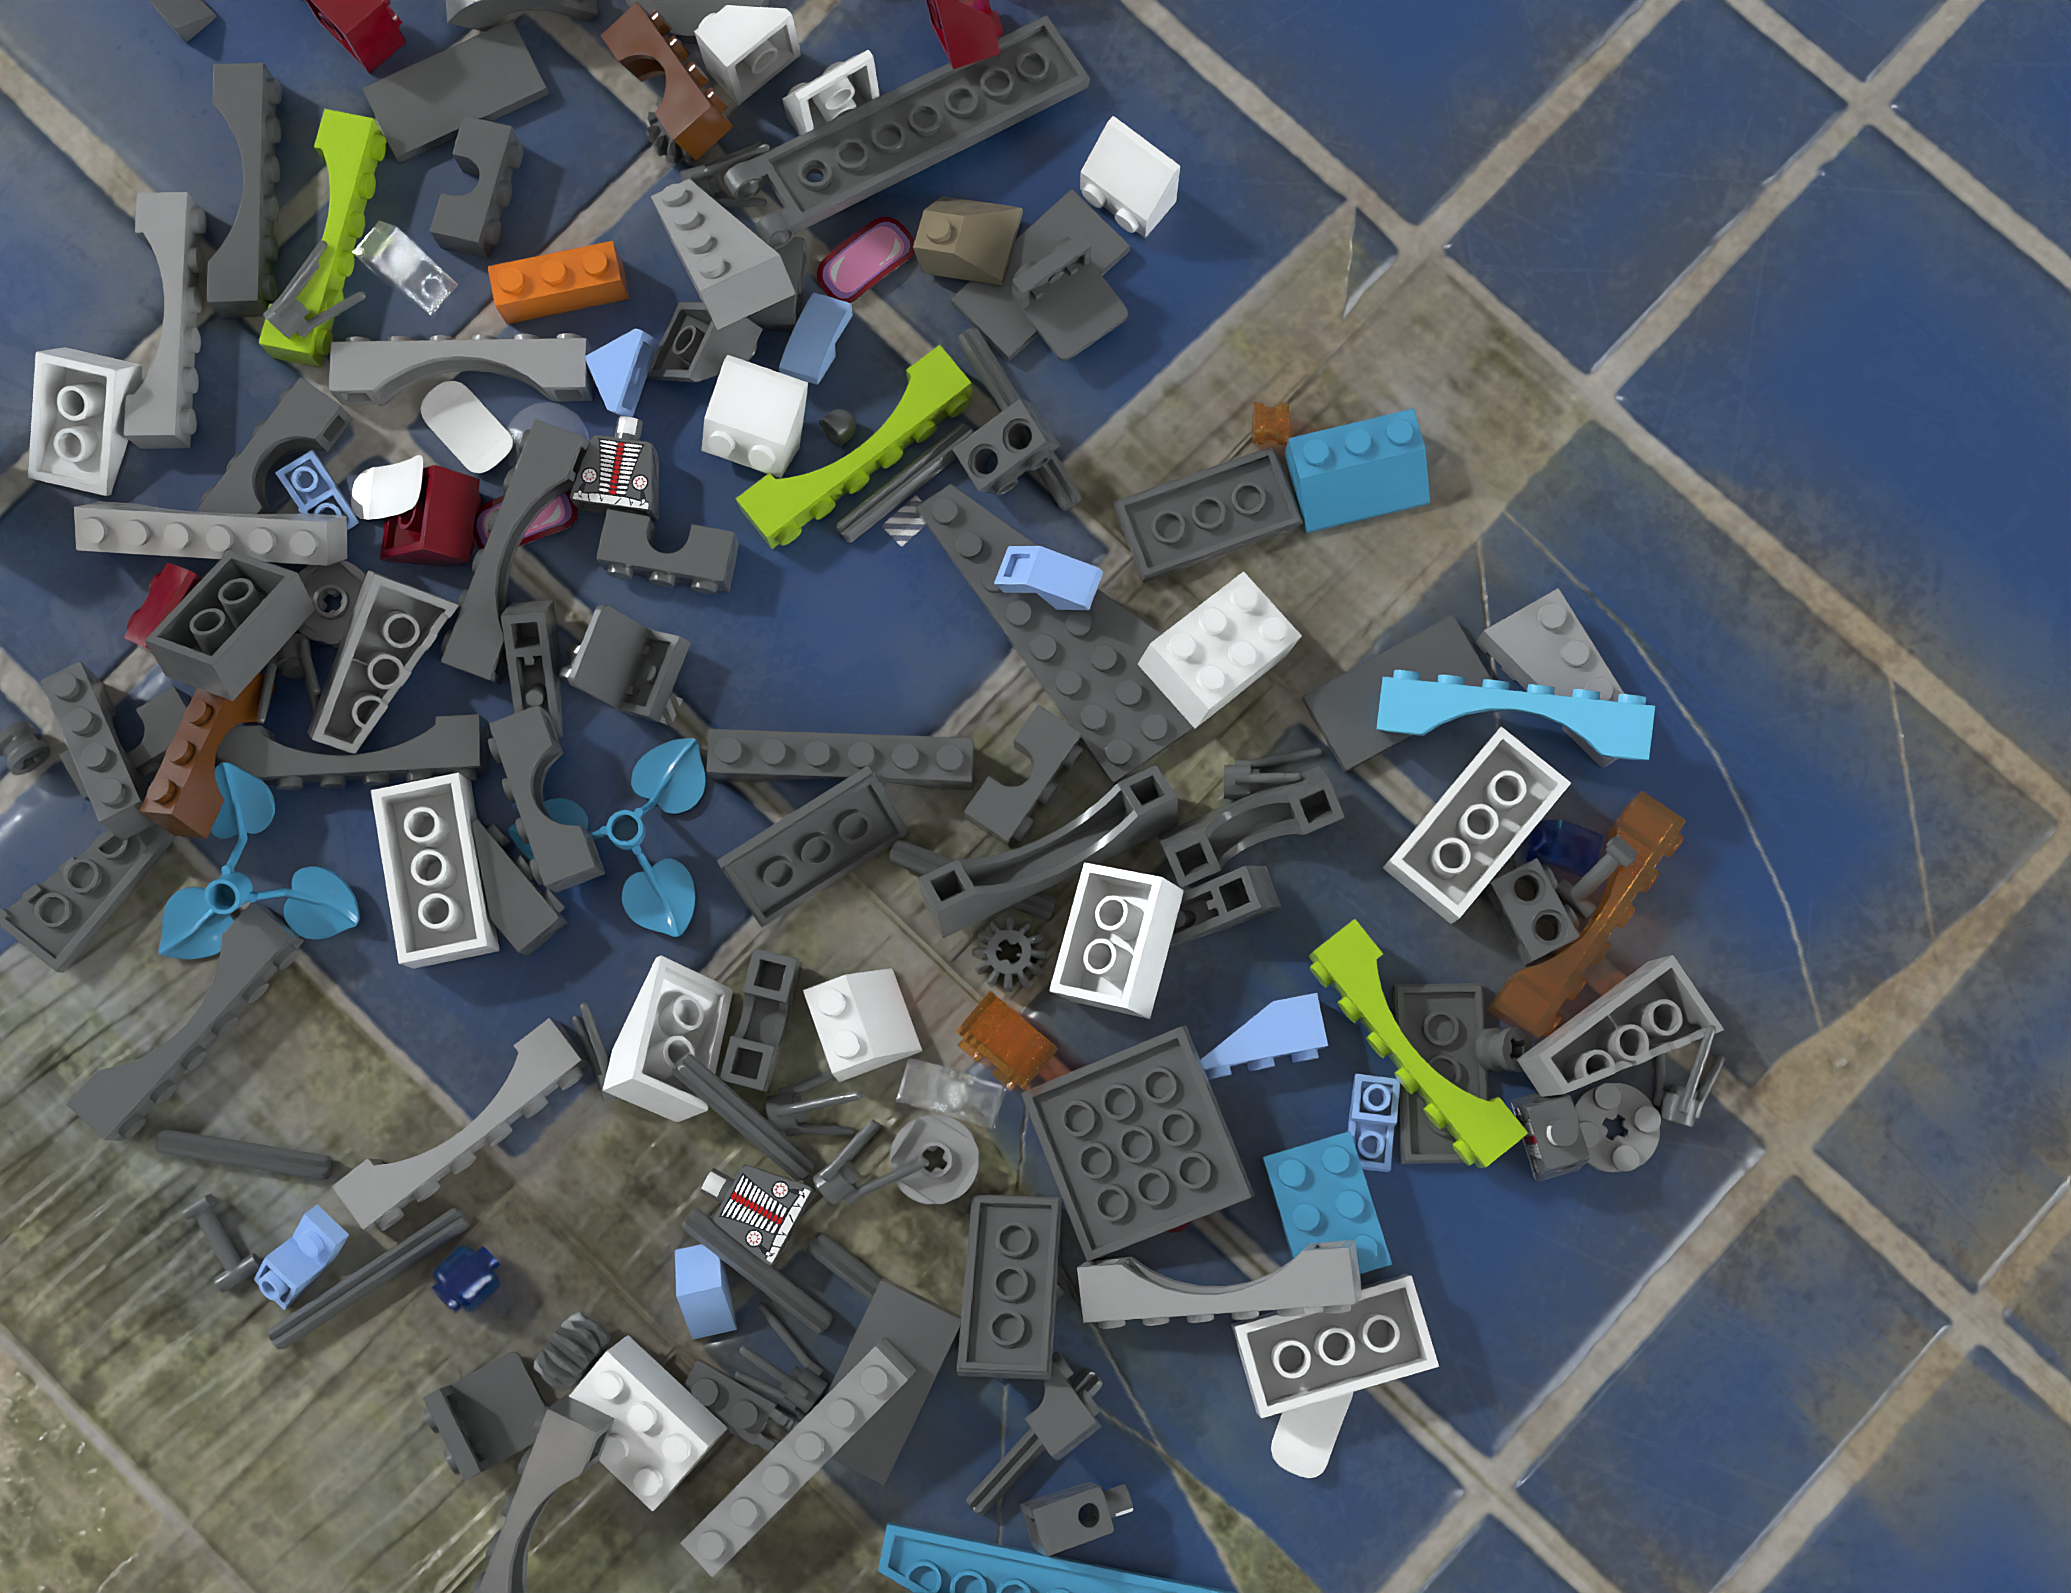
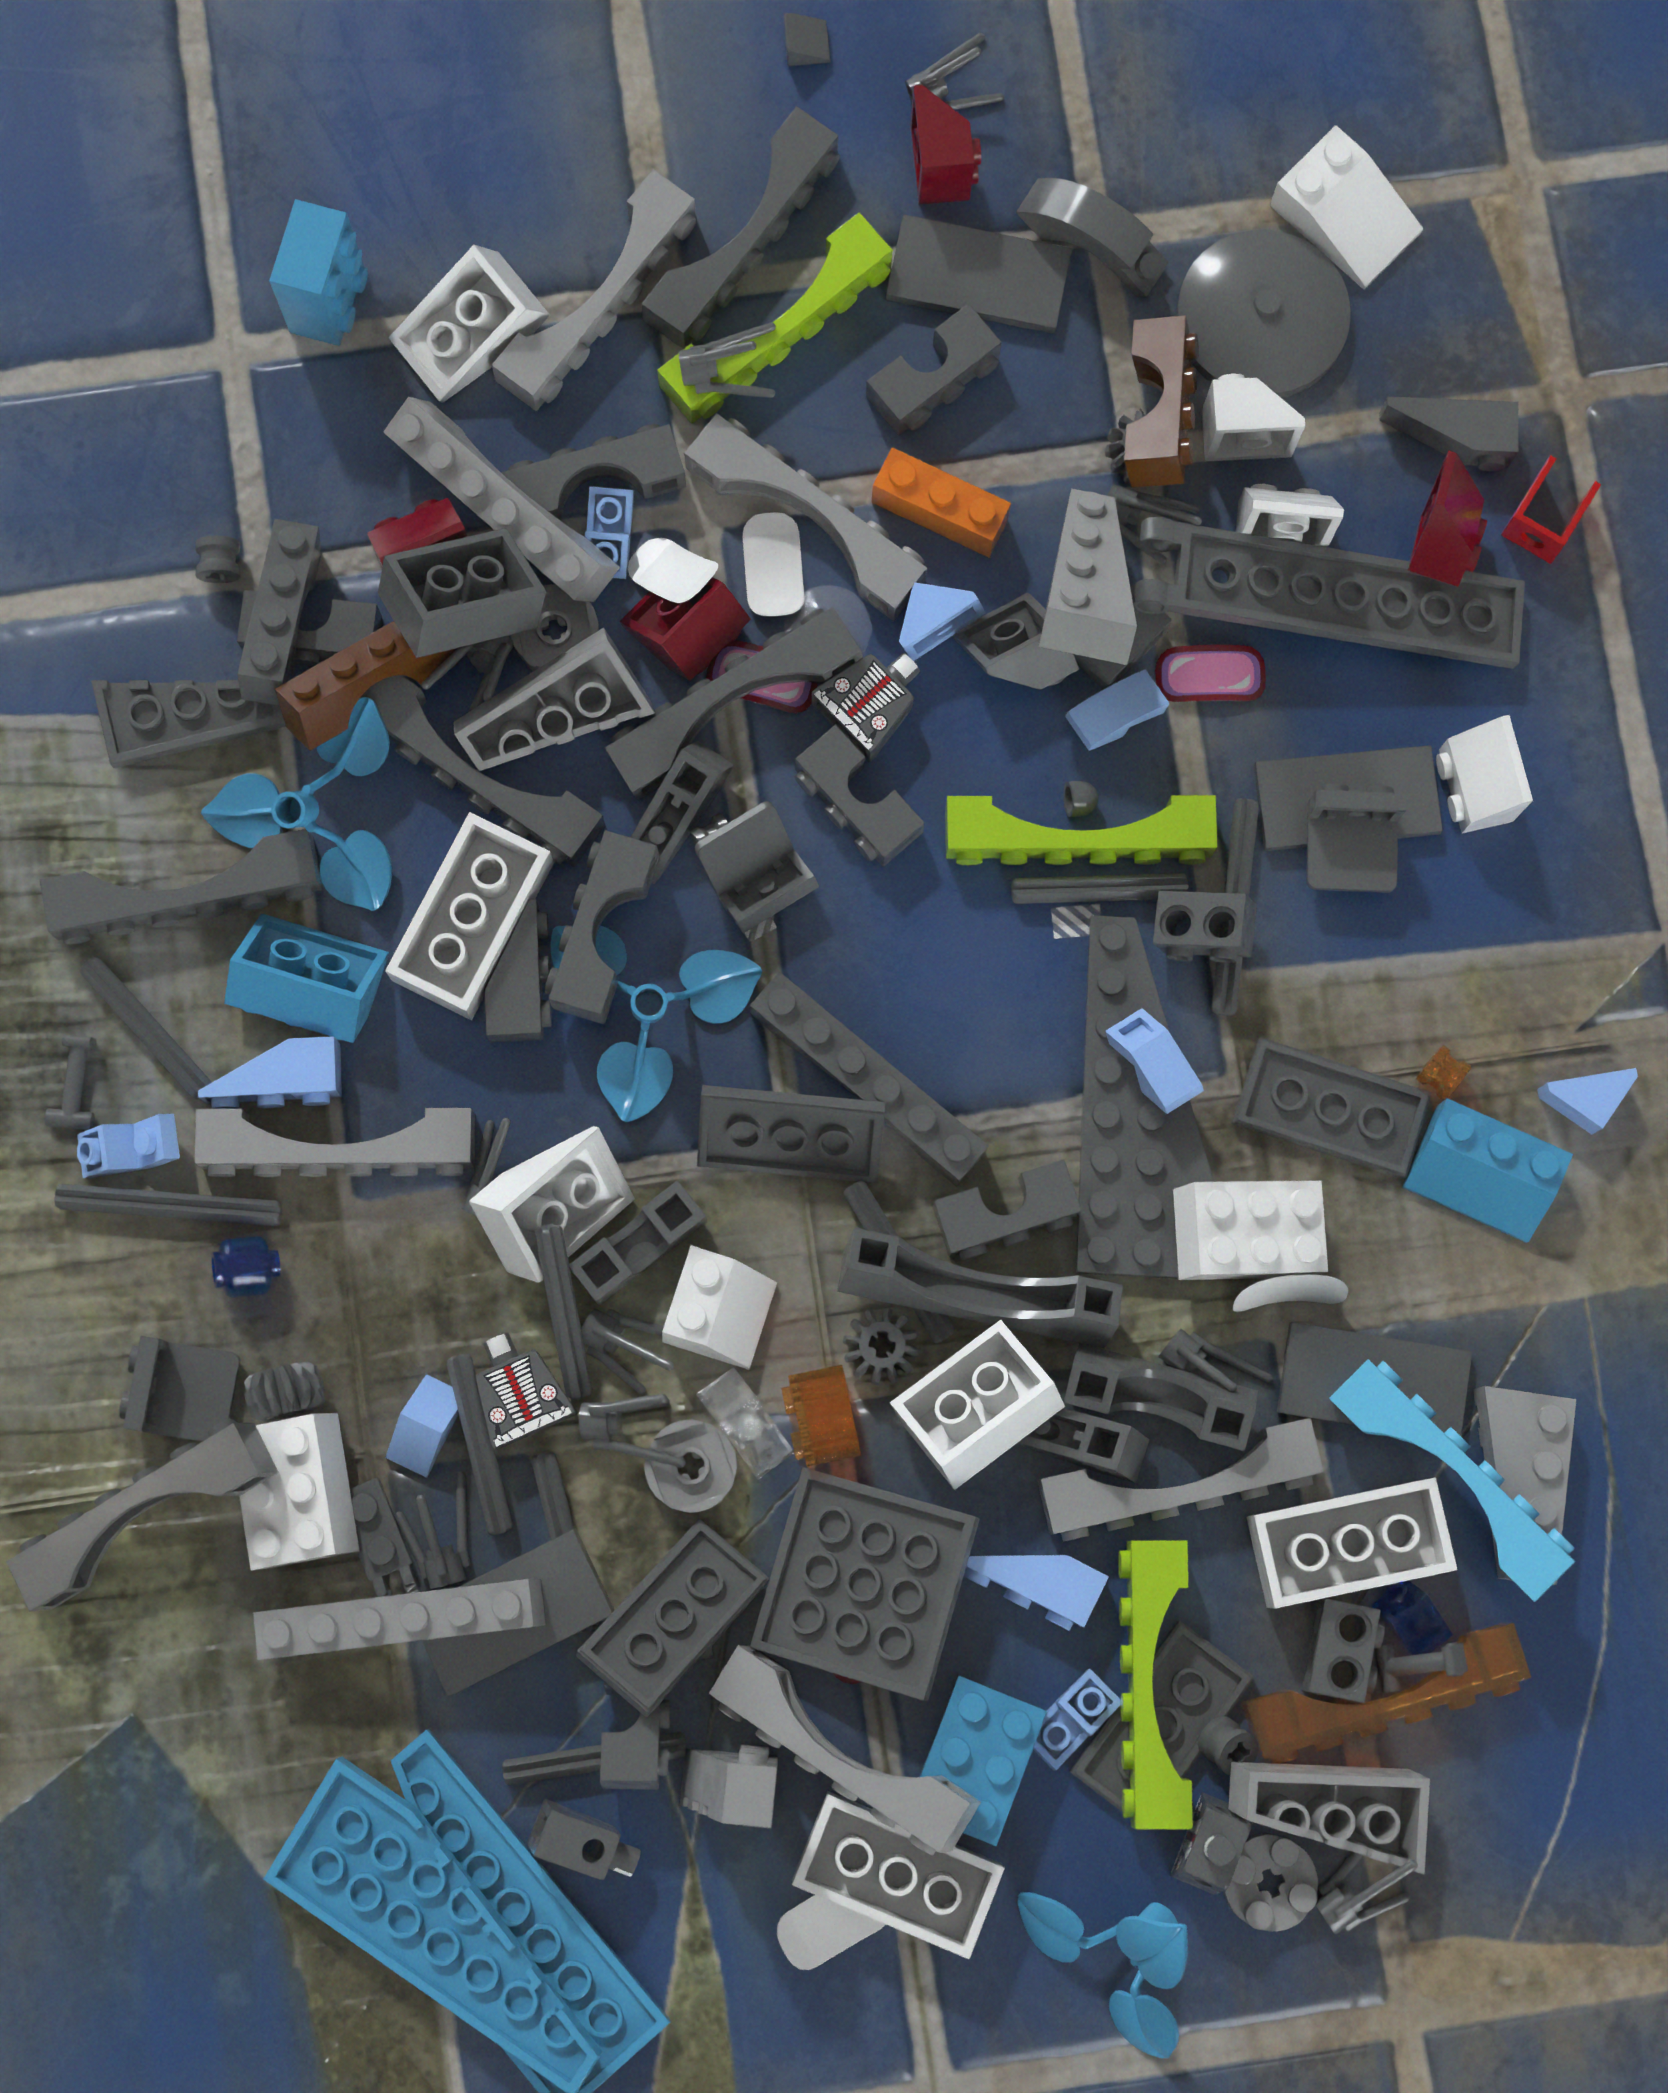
camera: 30 degrees right, 0 degrees up
(341, 1018) = (305, 977): none -> dark azure slope
(383, 1101) = (289, 1071): none -> light blue slope
(405, 267) = (824, 393): clear slope -> none
(755, 416) = (1015, 740): white slope -> none
(967, 239) = (1309, 722): dark tan slope -> none
(1156, 1379) = (730, 1785): none -> light grey wedge
(1284, 669) = (1292, 1288): none -> white sticker
(1372, 800) = (1282, 1454): none -> light grey arch
(1393, 361) = (1589, 1099): none -> light blue slope
(1561, 1243) = (1150, 1941): none -> dark azure plant

